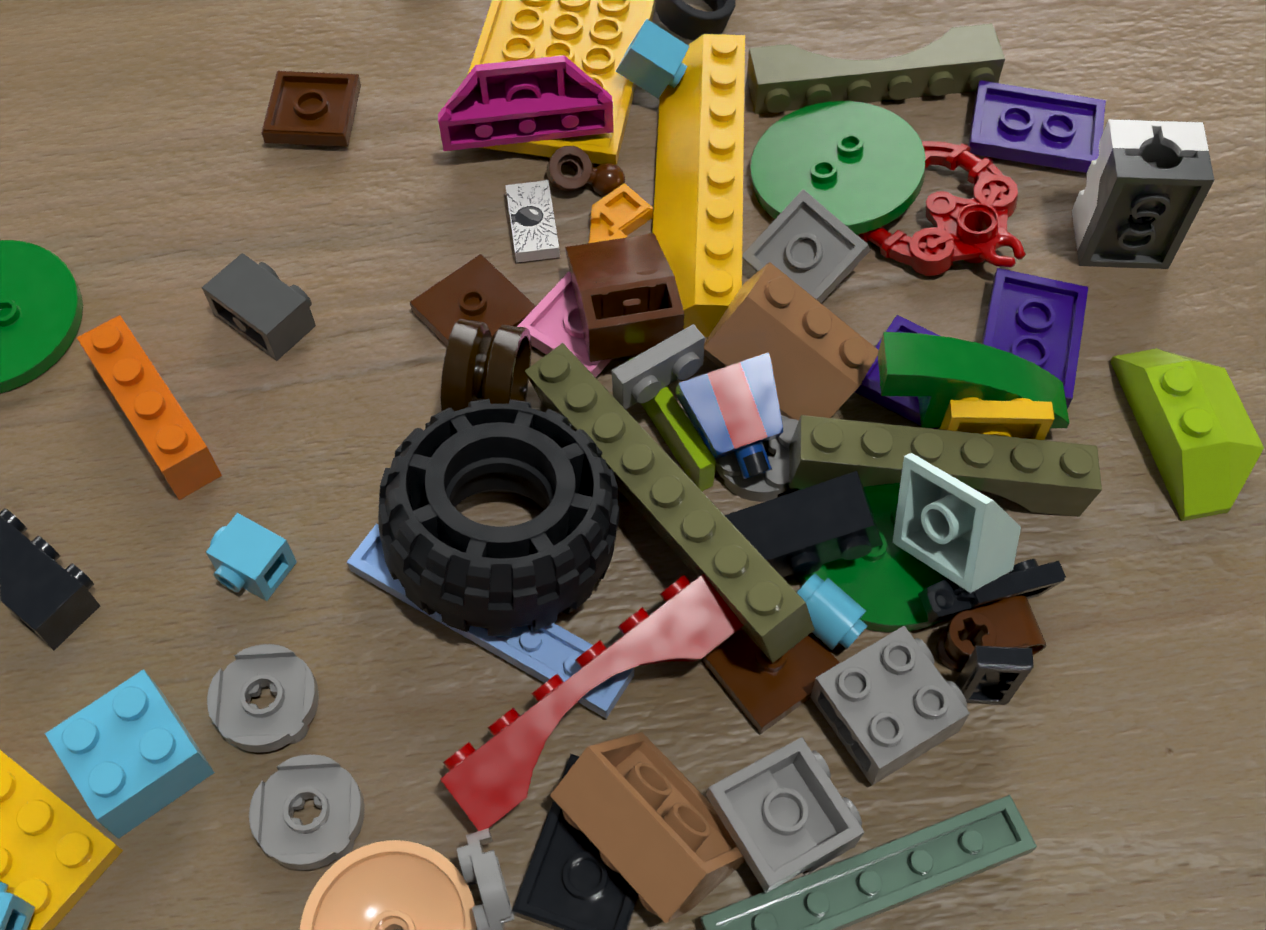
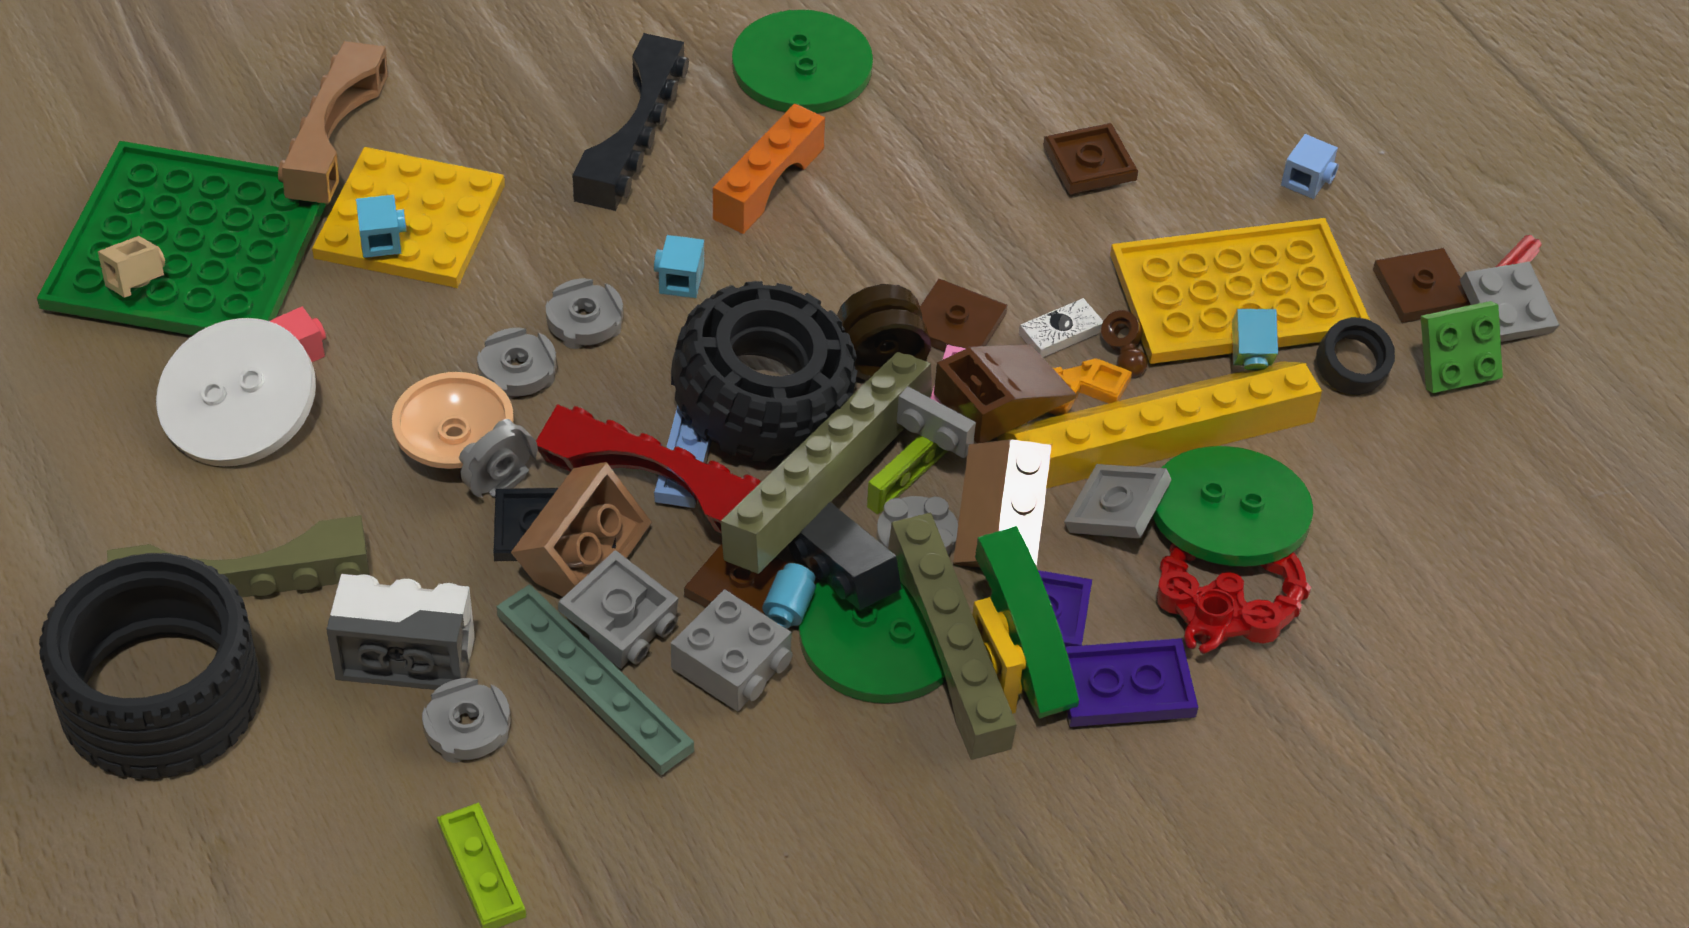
camera: 65 degrees right, 10 degrees down
(129, 754) = (515, 258): medium azure brick -> none
(260, 305) = (886, 195): dark grey brick -> none
(524, 104) = (1146, 269): dark pink wedge -> none
(735, 411) = (922, 480): torso -> none
(794, 78) = (1408, 560): olive arch -> none
(953, 526) = (885, 632): light aqua slope -> none
(994, 674) = (779, 700): black plate -> none
(996, 625) = (823, 705): reddish brown piece -> none
(1026, 579) = (854, 691): black hinge -> none
(1036, 126) = (1371, 641): plate -> none
(1142, 193) = (1296, 700): dark grey piece -> none
(1191, 428) = (1092, 810): lime wedge -> none

